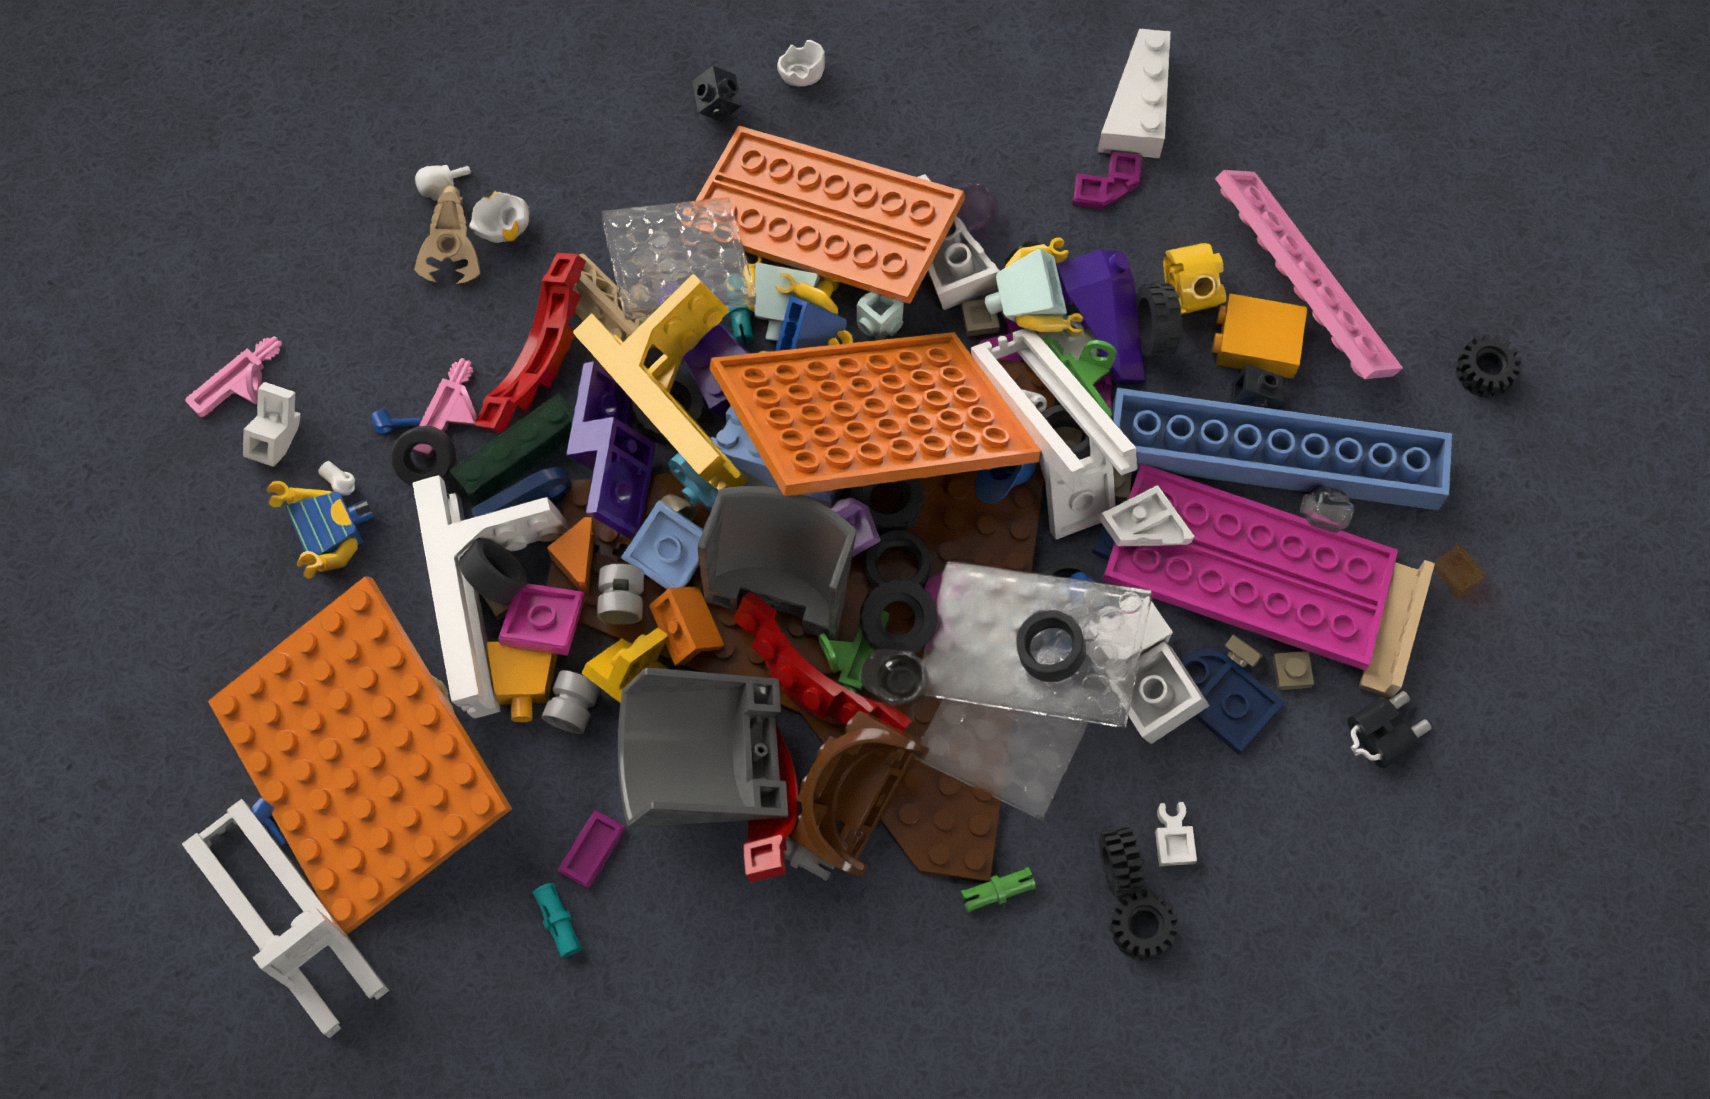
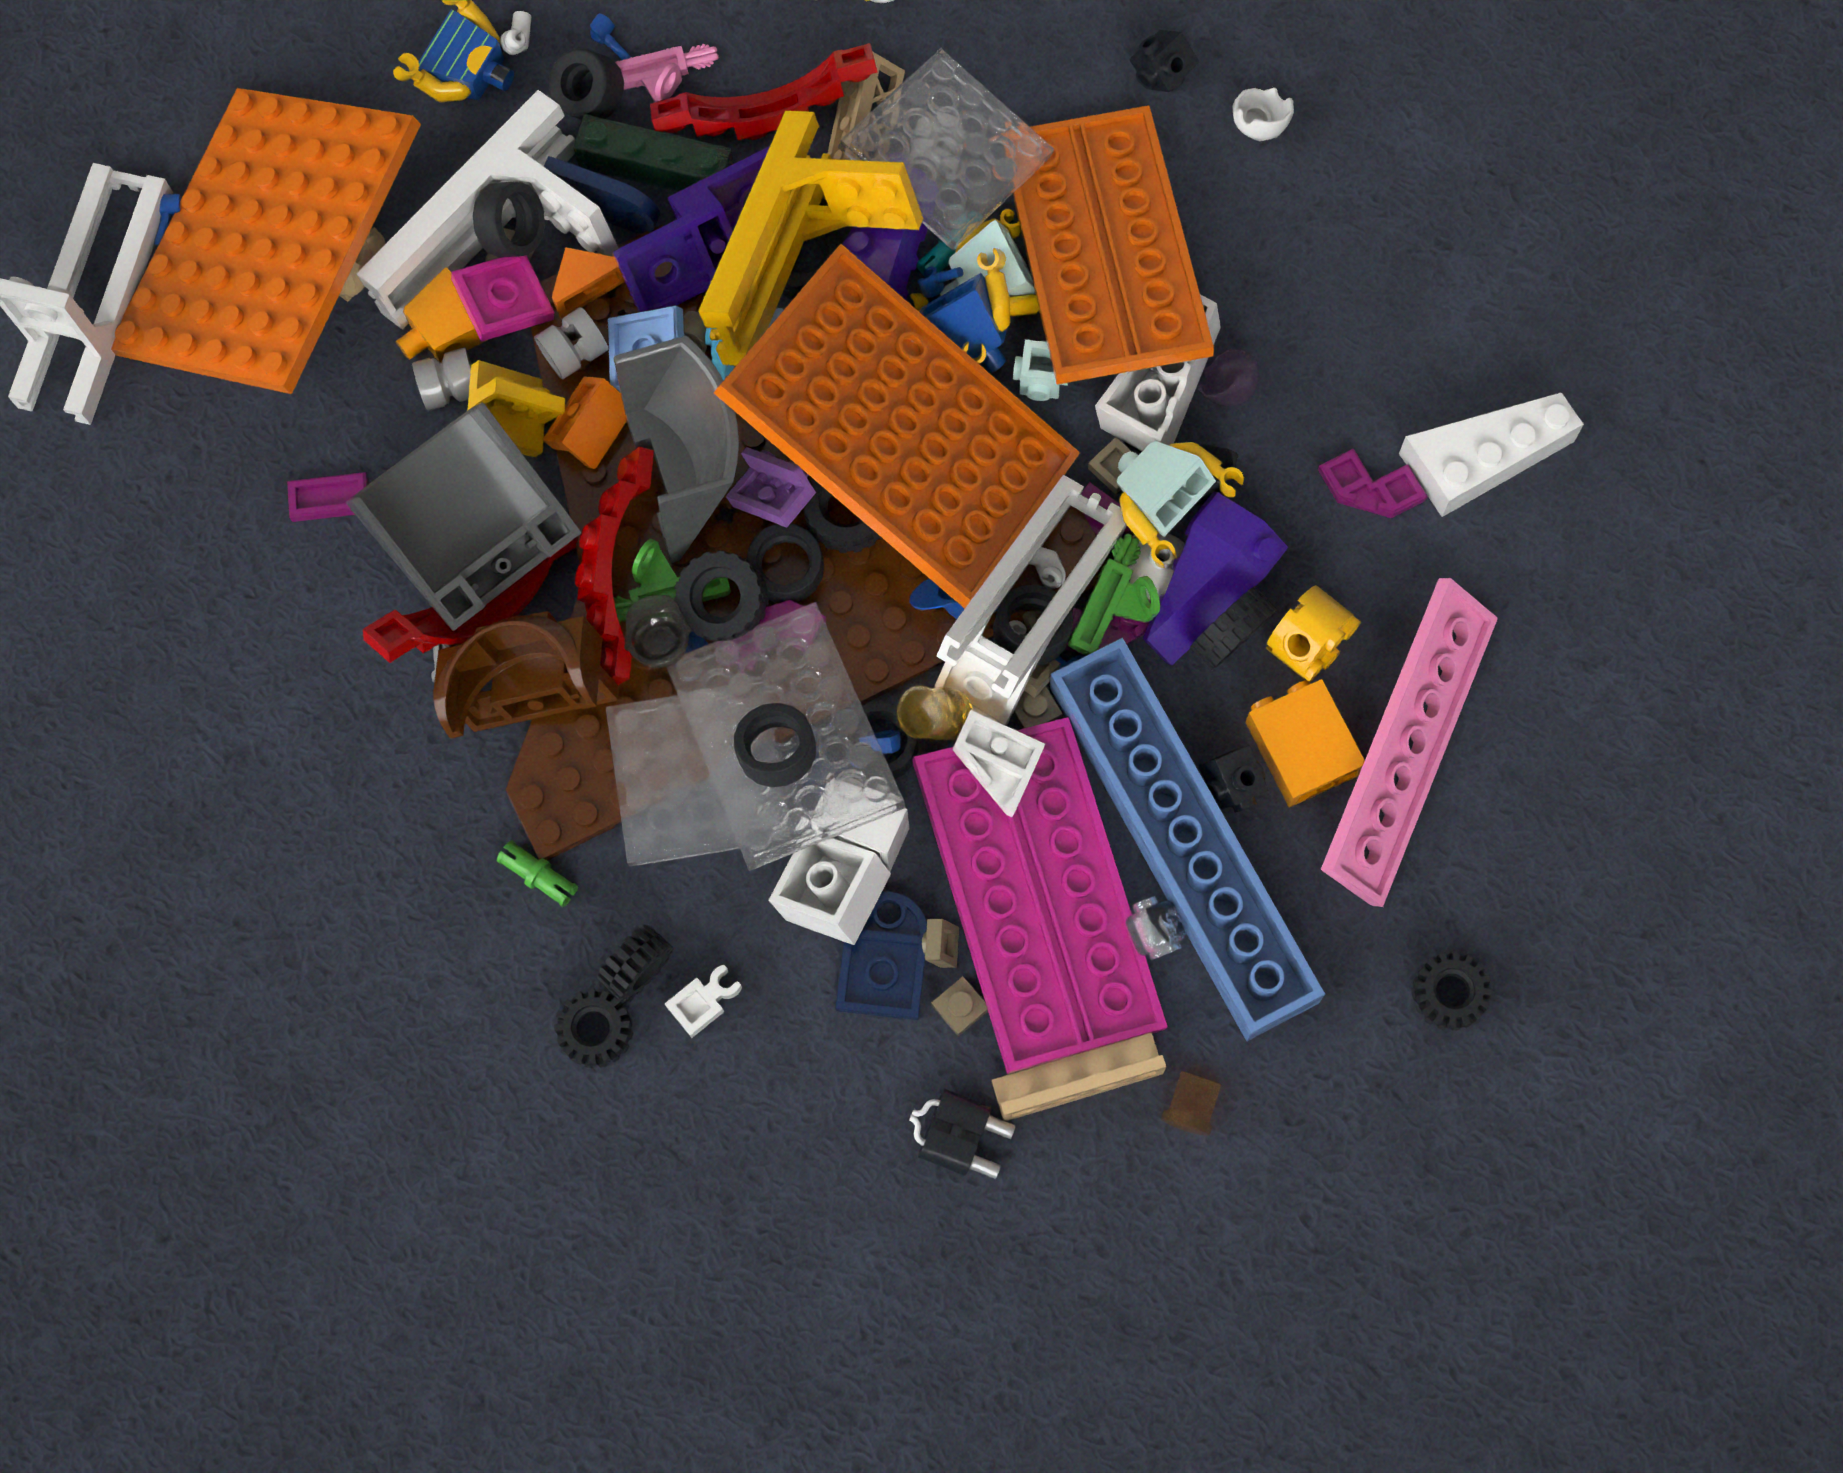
camera: 60 degrees right, 5 degrees up
(557, 920) = (243, 514): teal pin -> none
(759, 335) = (933, 281): none -> blue hand
(1082, 540) = (933, 712): none -> clear yellow wheel

